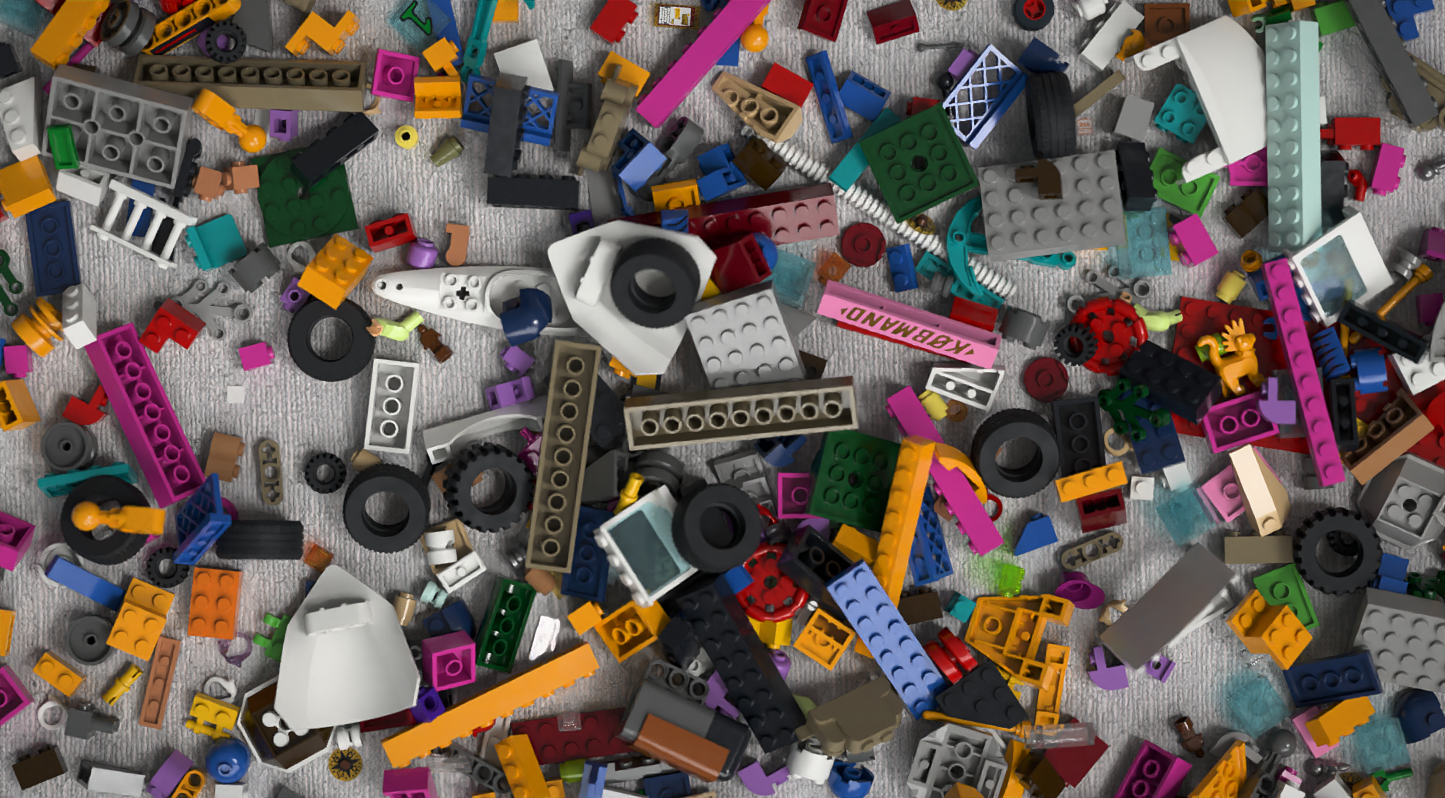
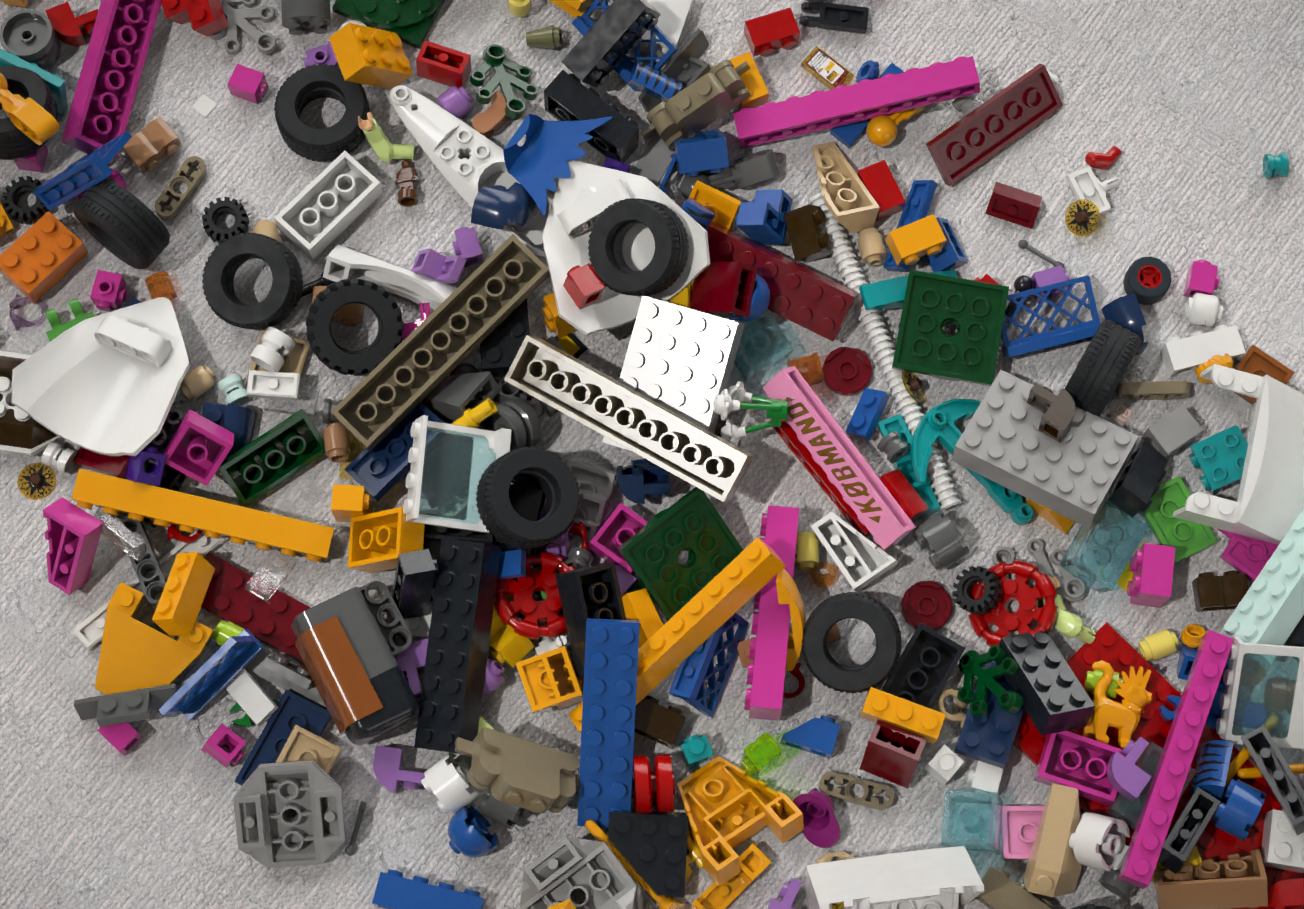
camera: 30 degrees right, 15 degrees down
(284, 590) = (108, 291): none -> dark pink brick
(444, 209) = (495, 57): none -> plant
(522, 251) = (546, 152): none -> blue piece
(562, 131) = (654, 82): none -> blue brick
(635, 338) = (583, 285): none -> brick
(804, 332) = (734, 399): none -> plant
(812, 135) = (871, 247): none -> tan brick
(845, 112) = (916, 240): none -> light orange brick
(1288, 466) = (1100, 841): none -> white brick

